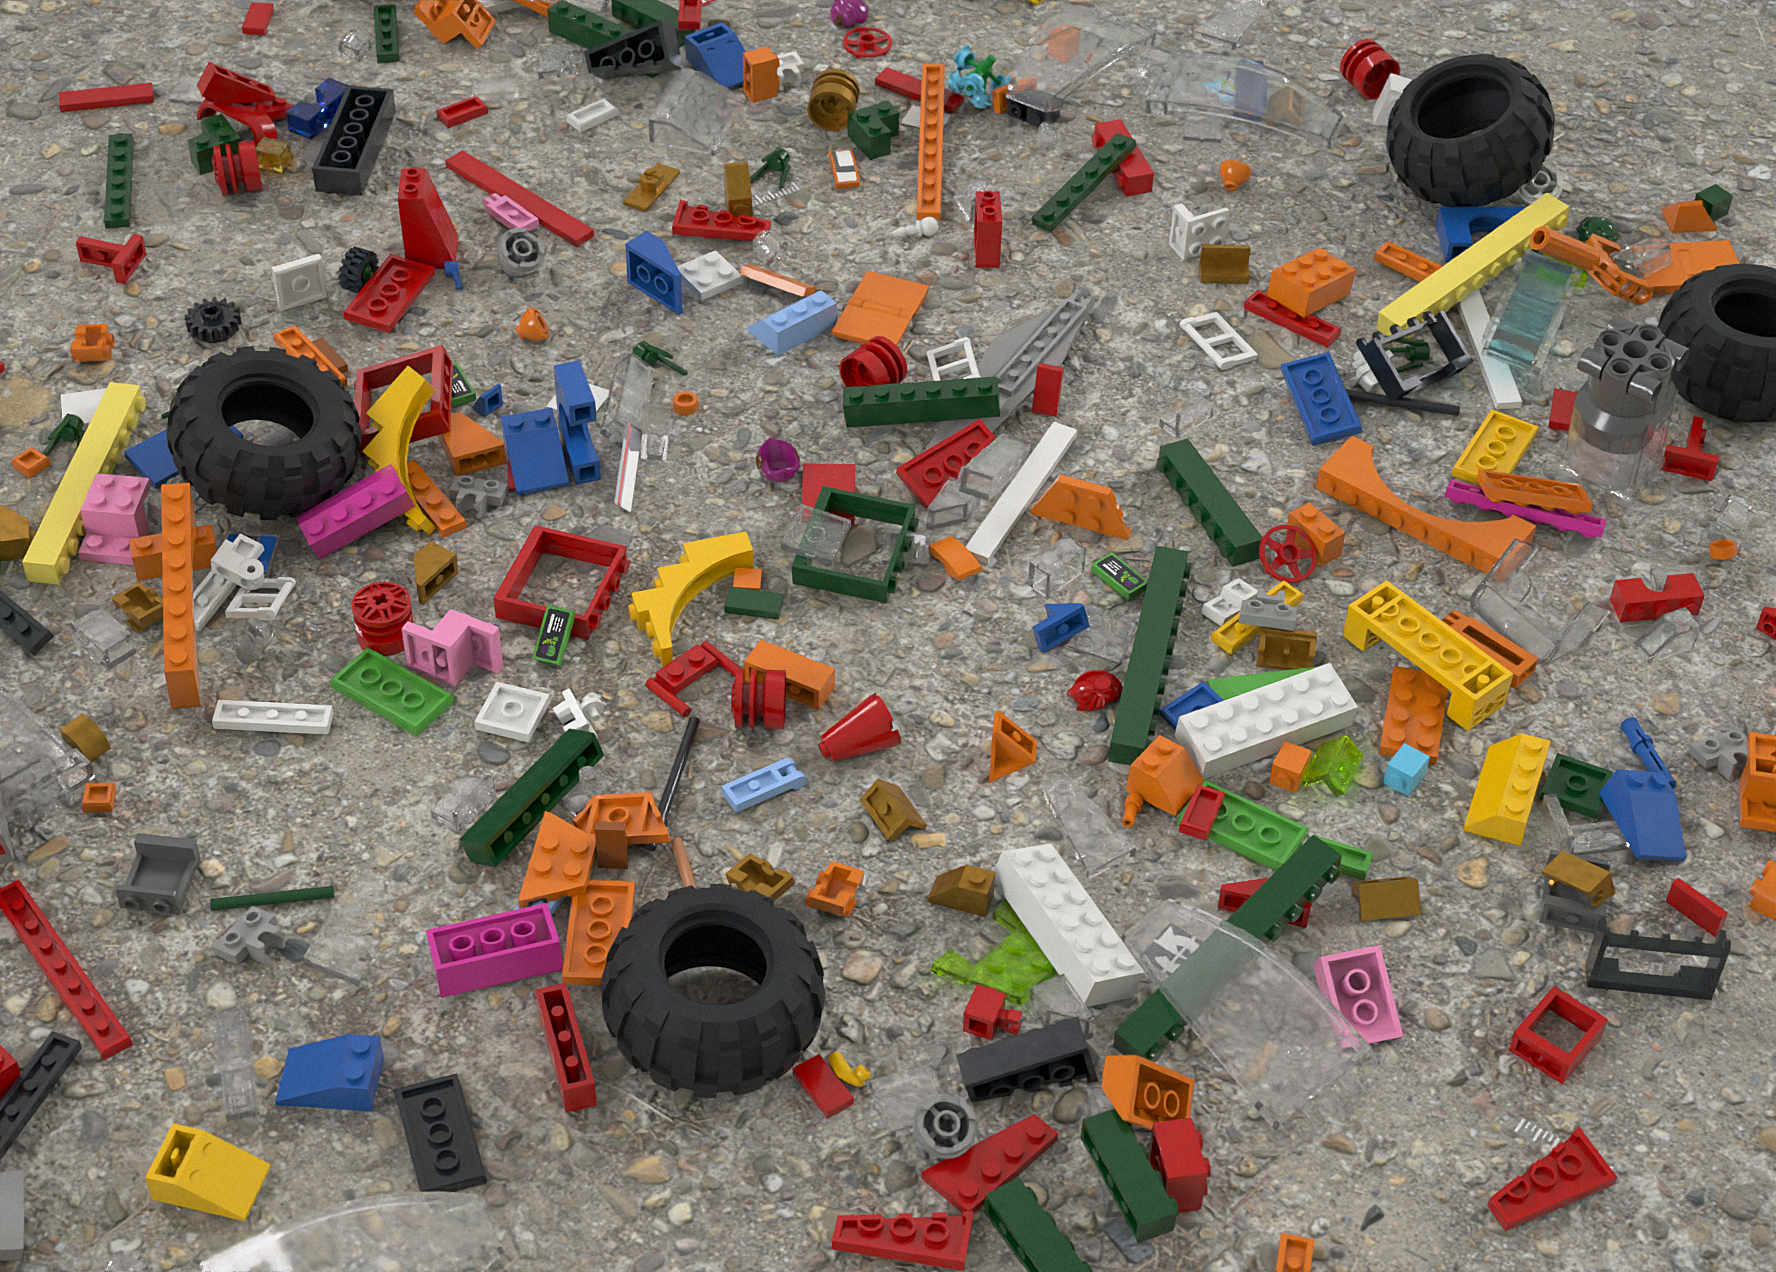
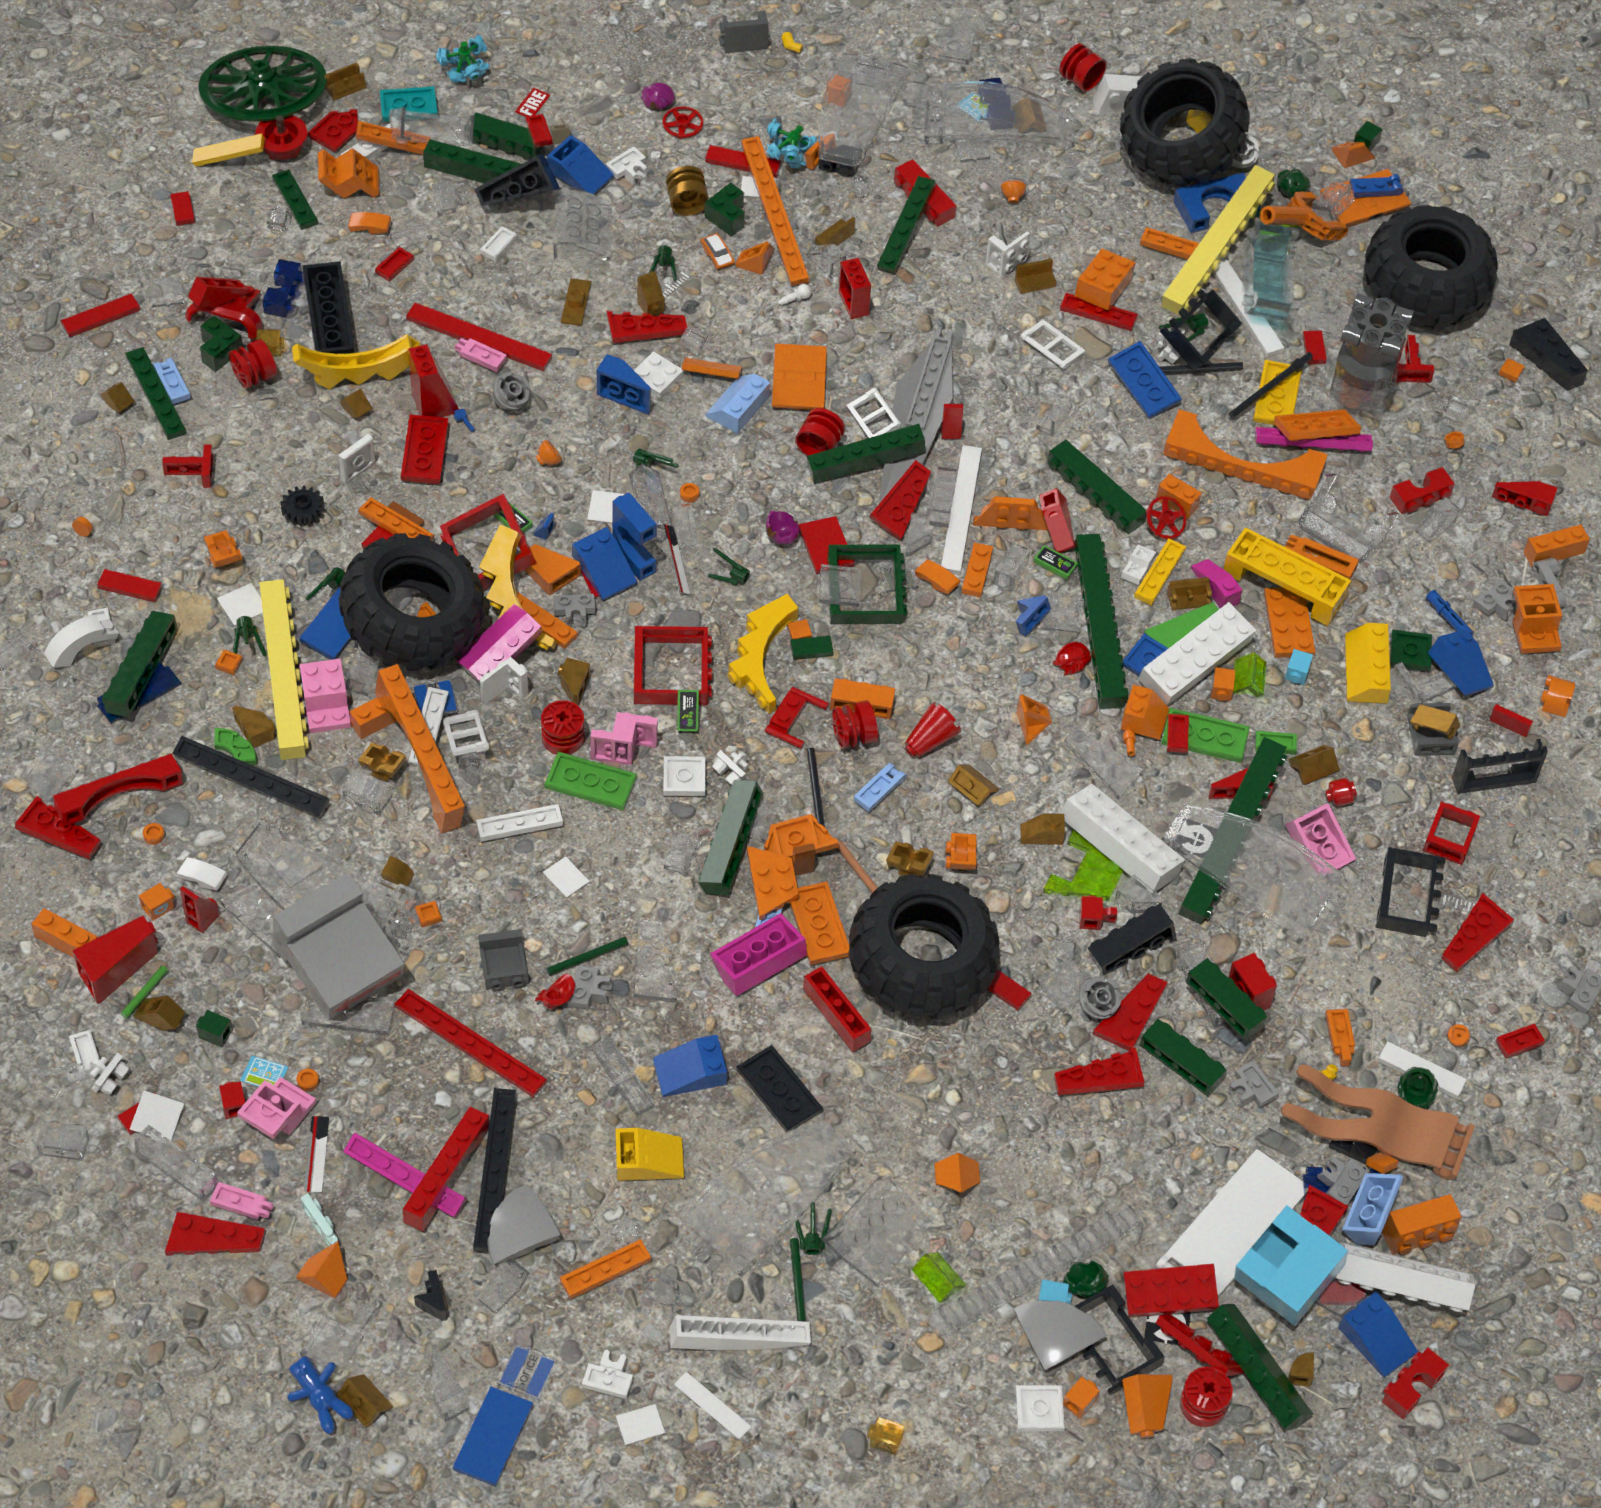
camera: 20 degrees left, 10 degrees up
(72, 172) = (117, 397): none -> pearl gold brick
(143, 171) = (172, 381): none -> light blue plate
(204, 933) = (557, 993): none -> red hat
(237, 568) = (442, 715): white leg -> none
(300, 796) = (566, 876): none -> white sticker
(326, 189) = (356, 367): none -> yellow arch
(335, 548) = (505, 675): none -> white bracket
(336, 231) = (356, 404): none -> pearl gold brick
(357, 268) = (395, 436): black wheel -> none
(458, 67) = (370, 221): none -> orange slope
(699, 498) = (738, 572): none -> dark green plant
(760, 74) = (619, 178): orange brick -> none
(844, 1072) = (1018, 977): yellow arm -> none
(889, 182) = (755, 258): none -> orange slope
(1000, 177) = (837, 233): none -> pearl gold panel
(1012, 562) = (977, 569): none -> orange plate
(1140, 525) = (1058, 519): none -> red slope
(1146, 1090) = (1219, 942): orange slope -> none
(1268, 611) = (1171, 569): light grey plate -> none
(1333, 645) = (1222, 584): none -> dark pink slope
(1411, 941) = (1341, 792): none -> red head
(1487, 1056) = (1417, 860): none -> black hinge
(1528, 422) = (1295, 366): none -> black bar
(1704, 253) = (1376, 186): none -> blue plate

